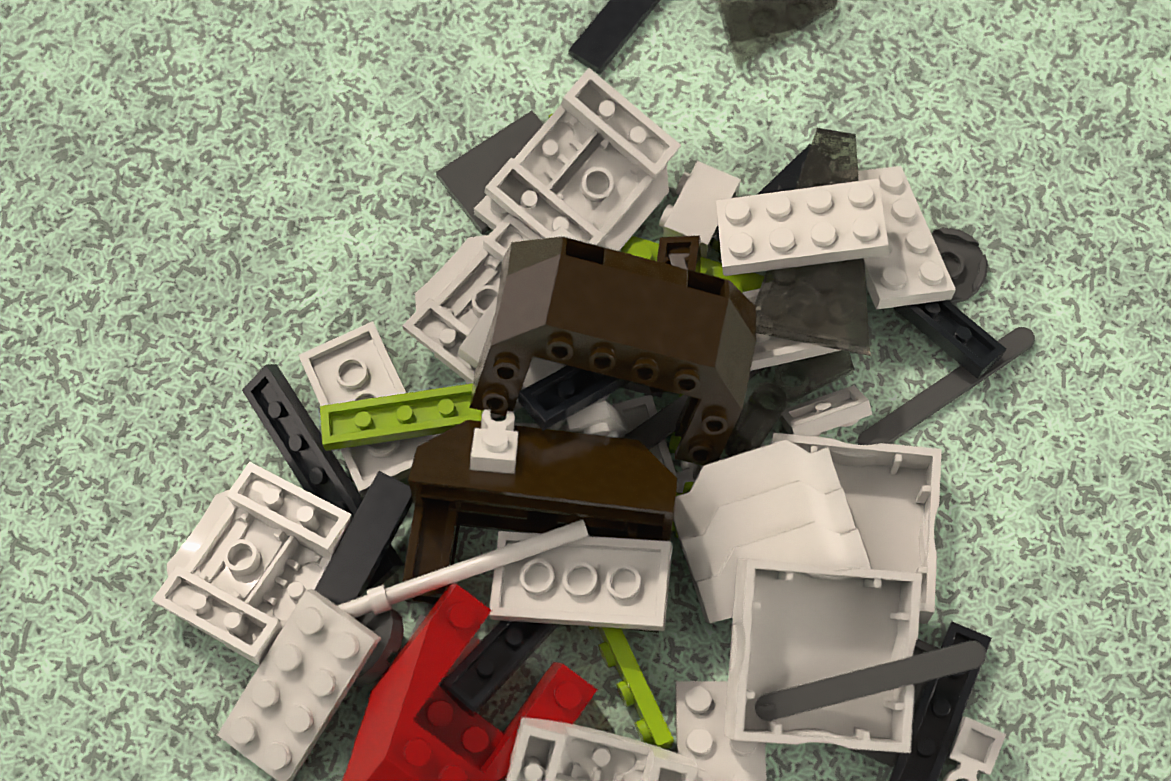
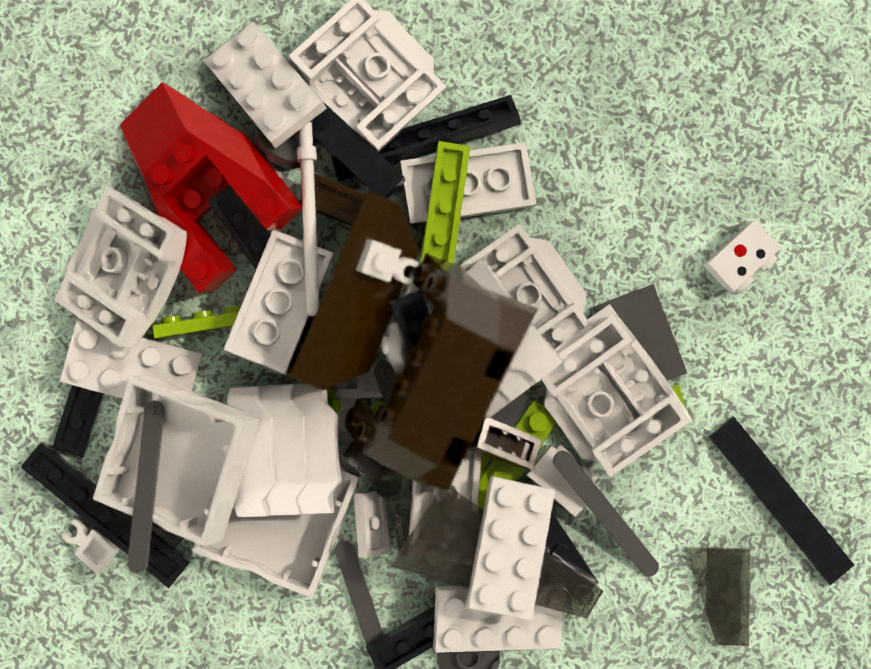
camera: 110 degrees right, 20 degrees up
(377, 83) = (742, 257): none -> white brick
(724, 150) = (605, 513): none -> dark grey piece

